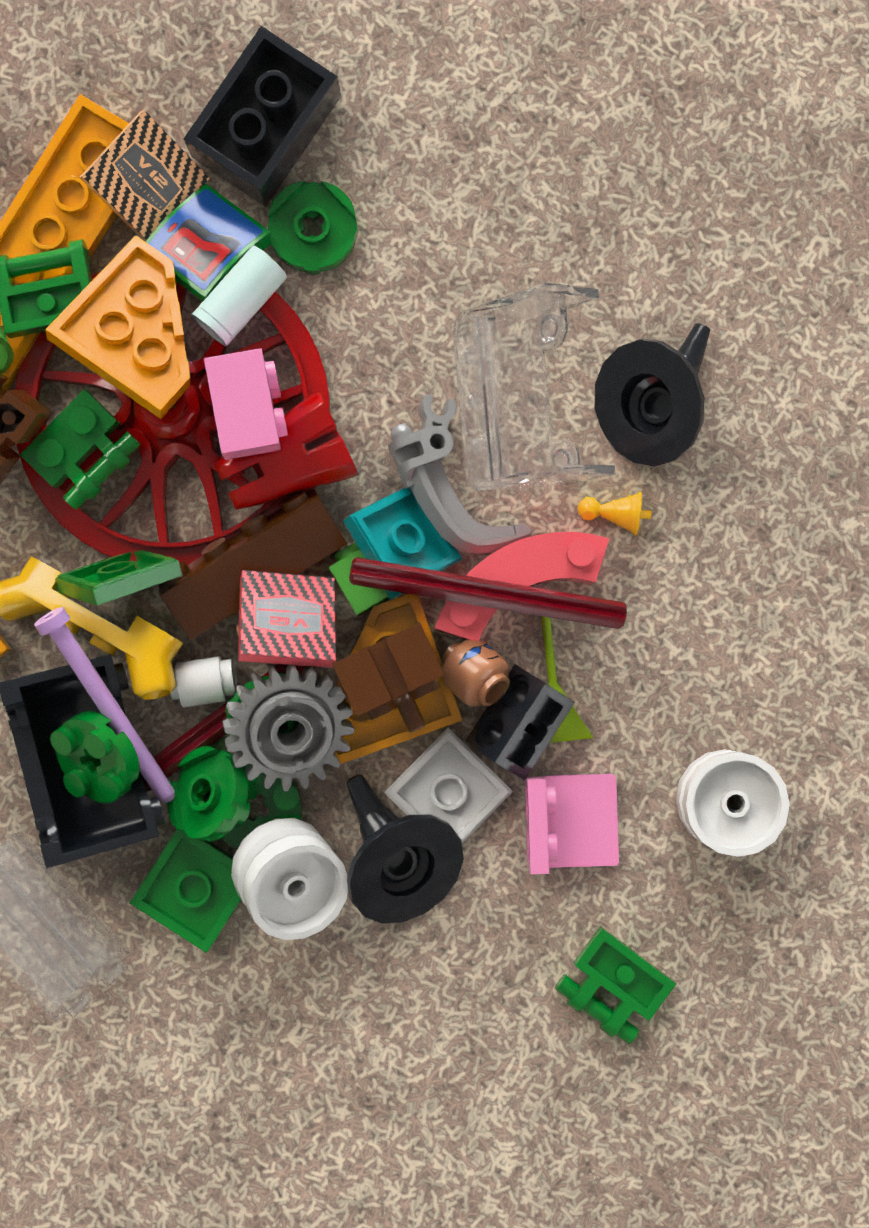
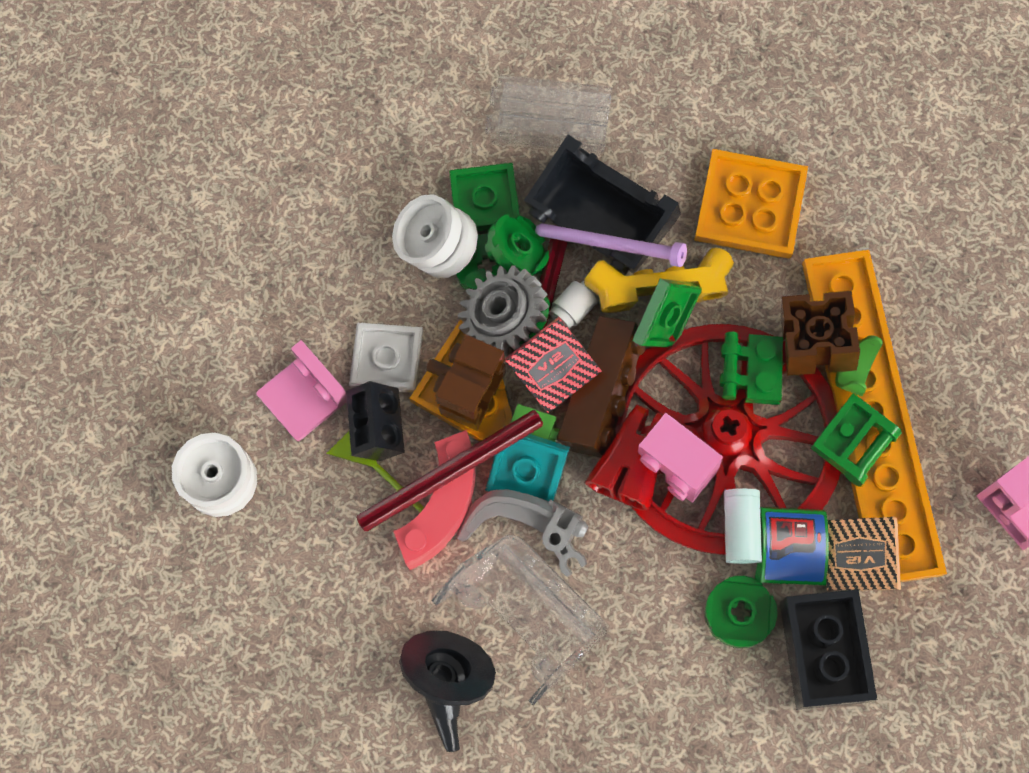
camera: 145 degrees right, 15 degrees down
(78, 746) = (594, 212): green plate -> none
(130, 328) = (784, 450): light orange plate -> none
(403, 861) = (381, 294): black piece -> none
(475, 672) = (422, 426): nougat head -> none
(622, 973) = (207, 338): green plate -> none
(623, 512) = (412, 594): yellow piece -> none

